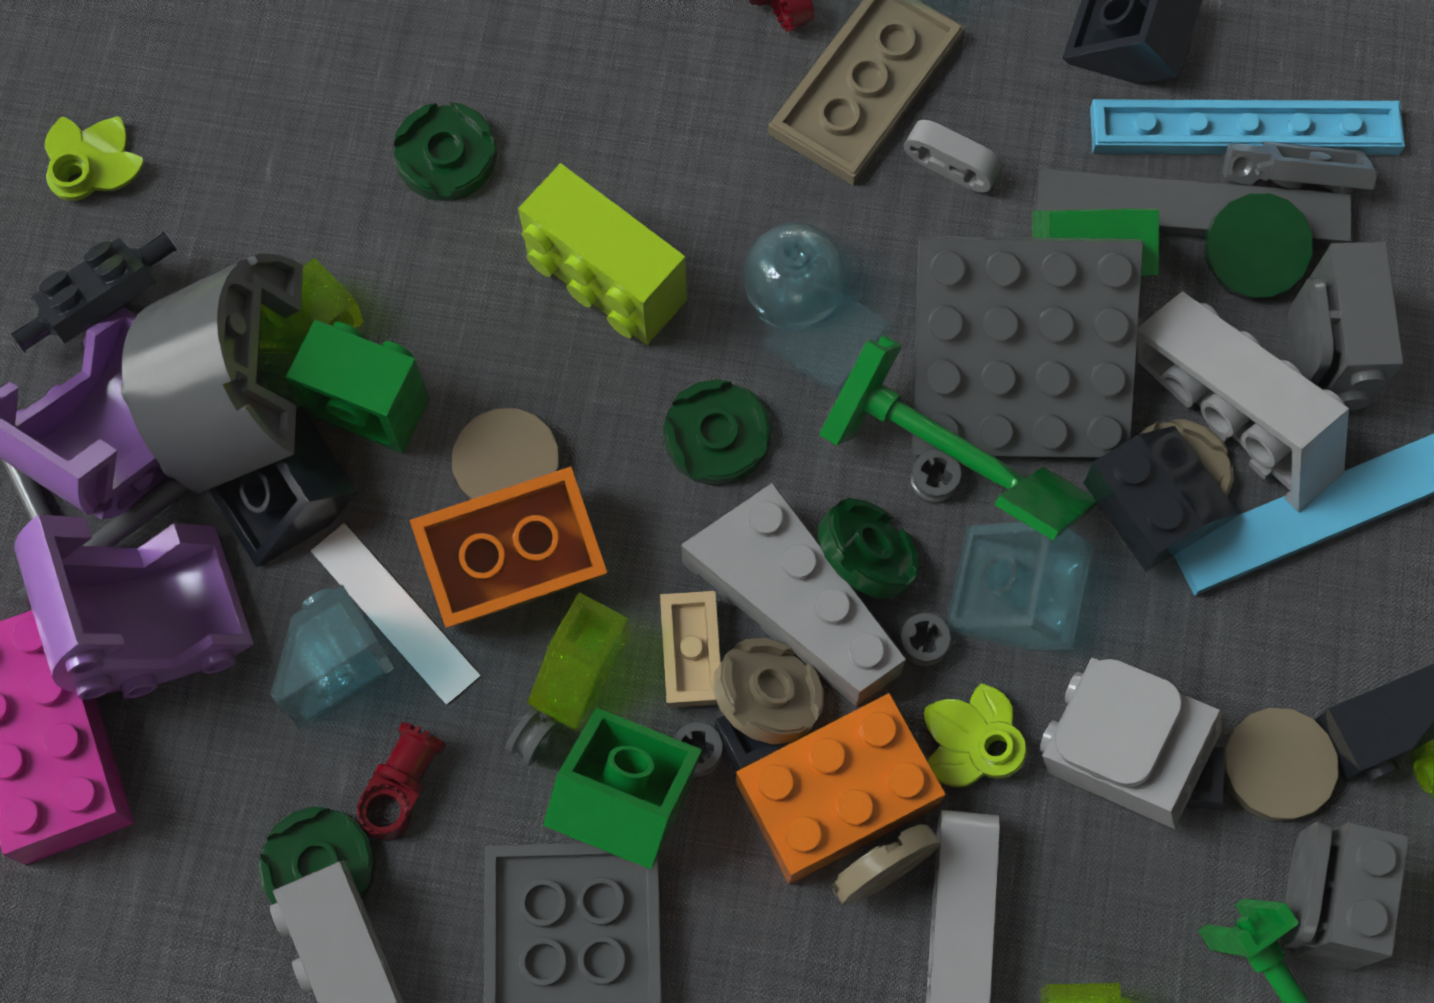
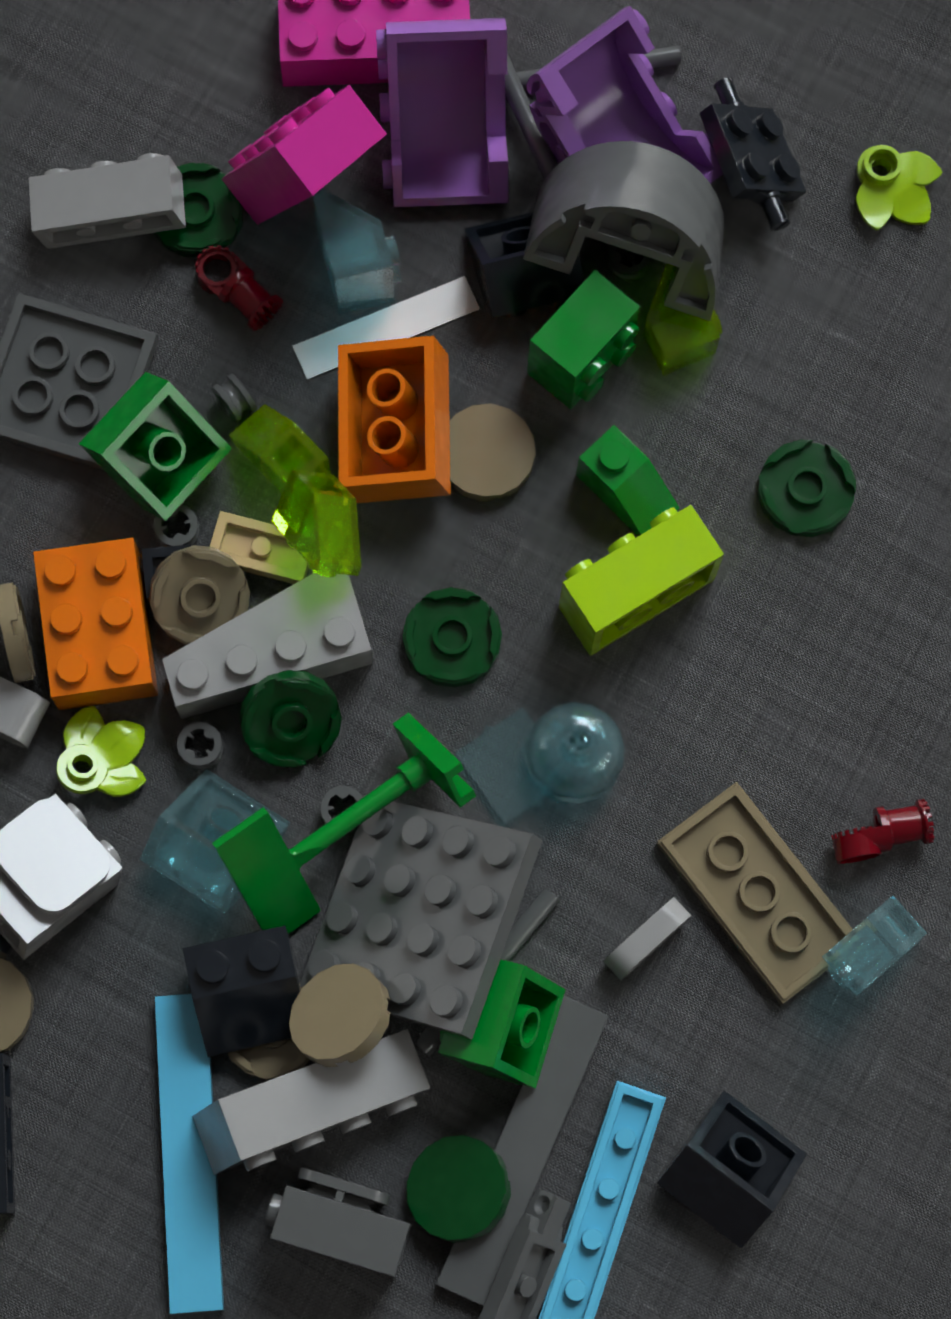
camera: 105 degrees right, 5 degrees up
(239, 719) = (302, 153): none -> dark pink brick
(495, 313) = (625, 480): none -> green slope
(657, 570) = (320, 522): none -> clear neon green slope
(1161, 377) = (339, 1015): none -> dark tan tile

